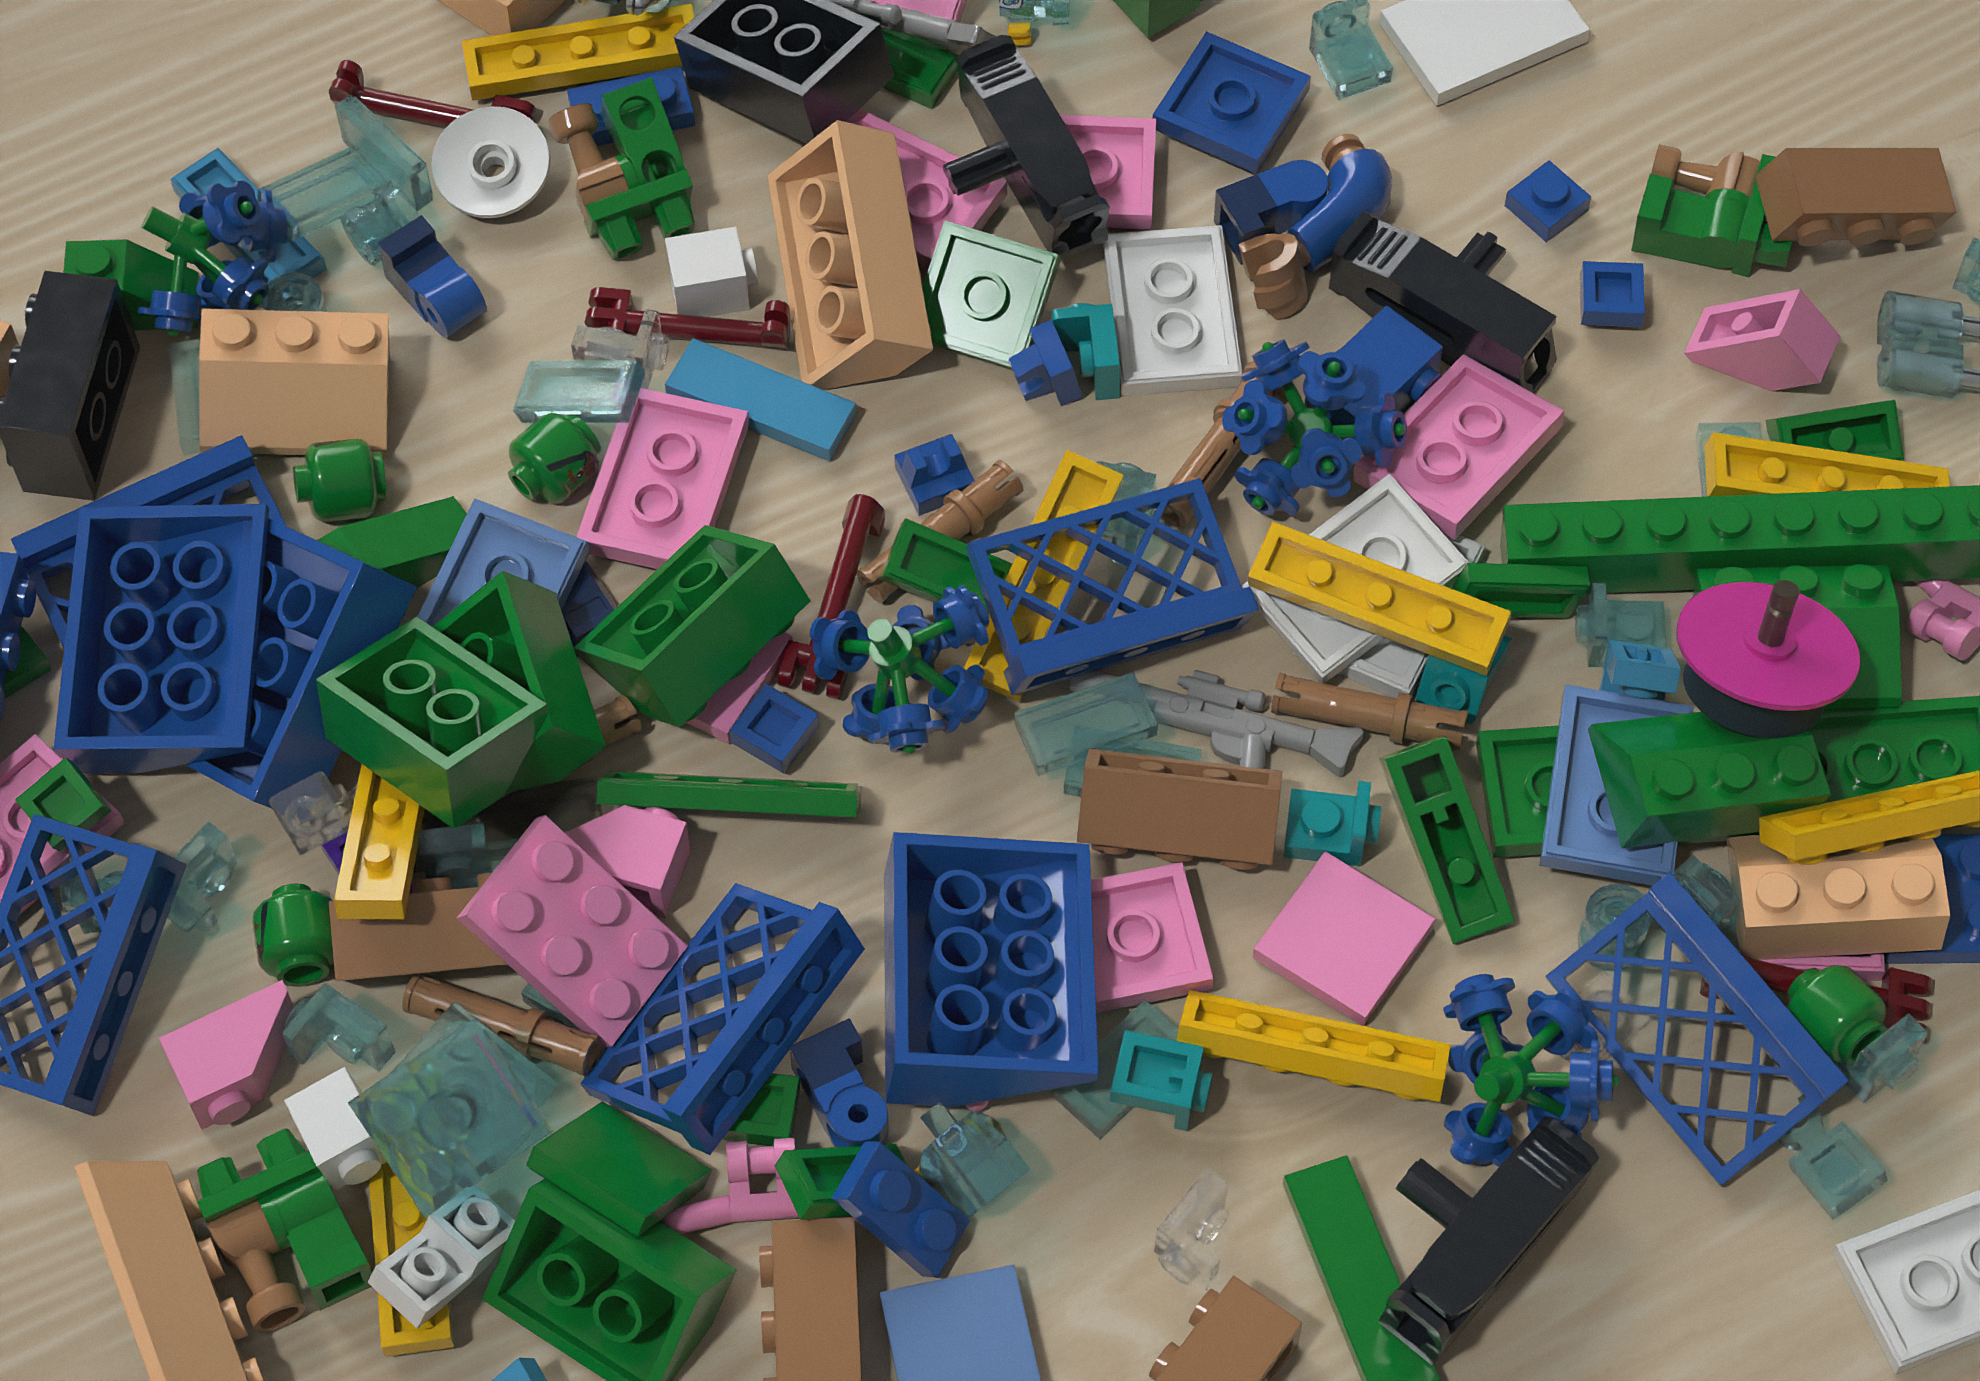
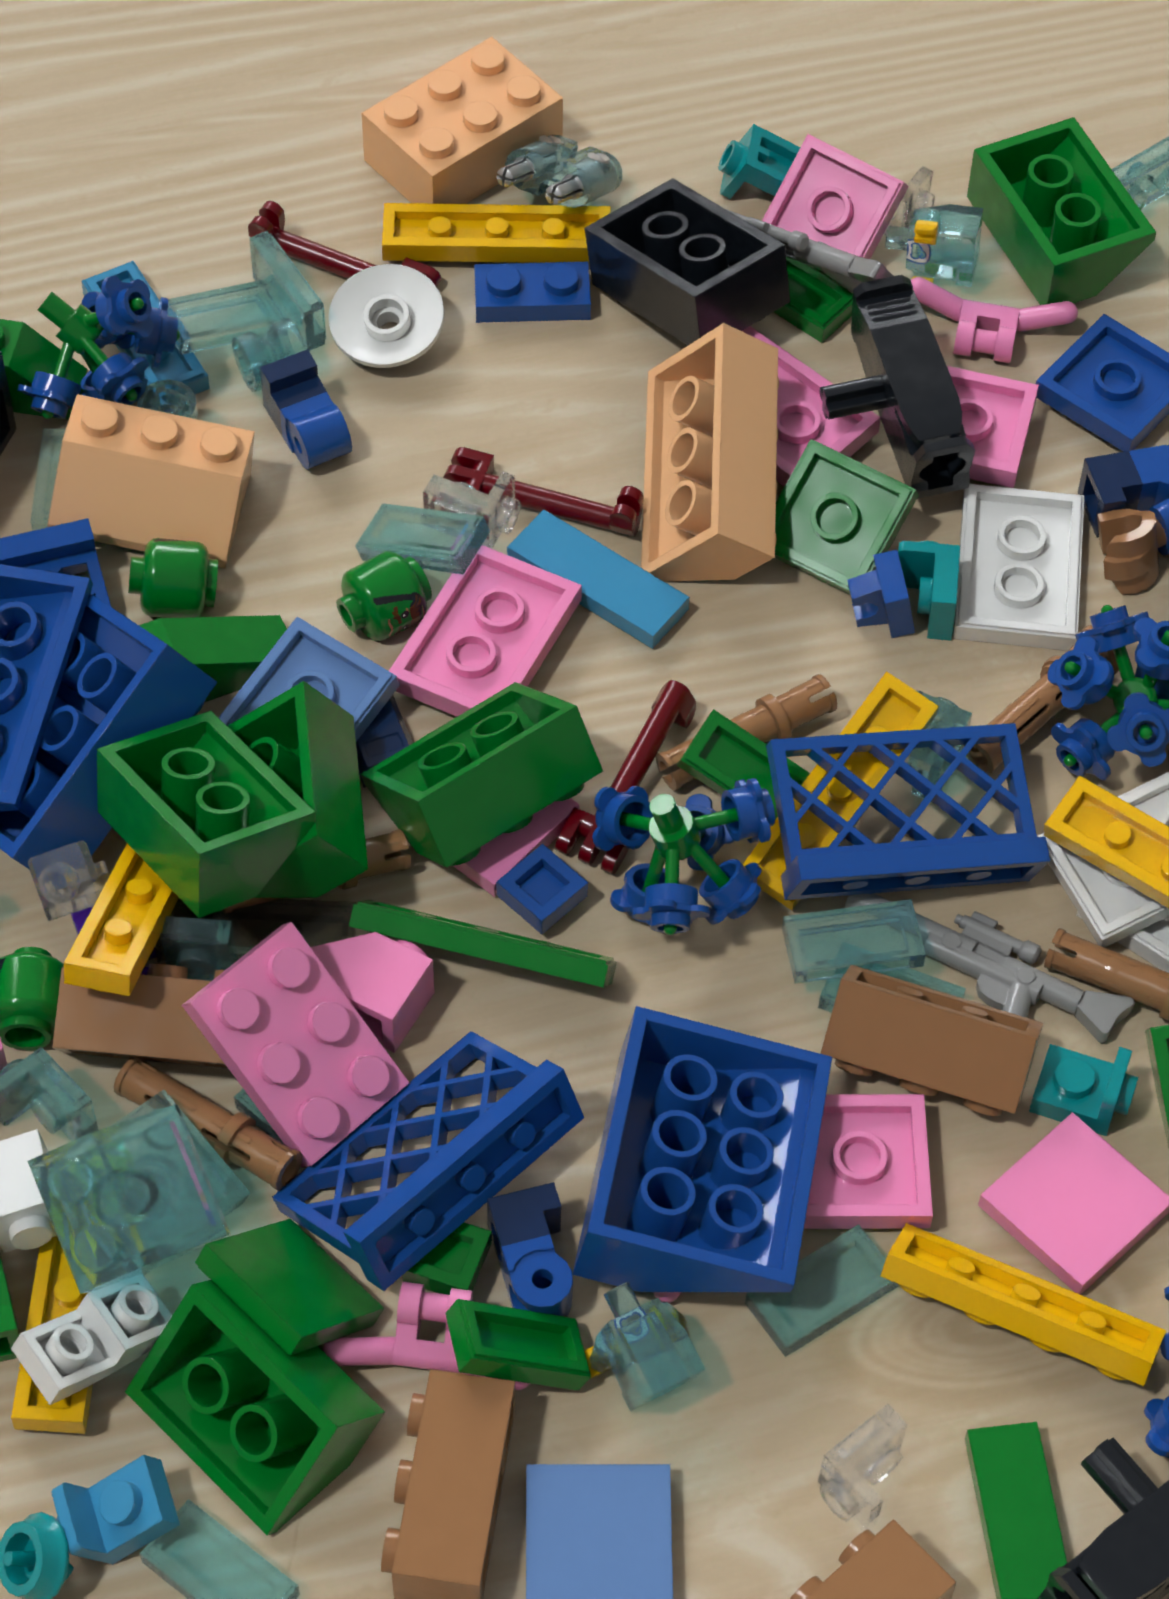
camera: 10 degrees right, 5 degrees down
(637, 183) = (520, 359): green hips -> none
(710, 272) = (574, 451): white brick -> none
(900, 1209) = (564, 1383): blue plate -> none
(932, 472) = (750, 674): blue tile -> none
(1094, 52) = (990, 326): none -> bright pink piece
(1161, 1077) = (859, 1303): teal bracket -> none

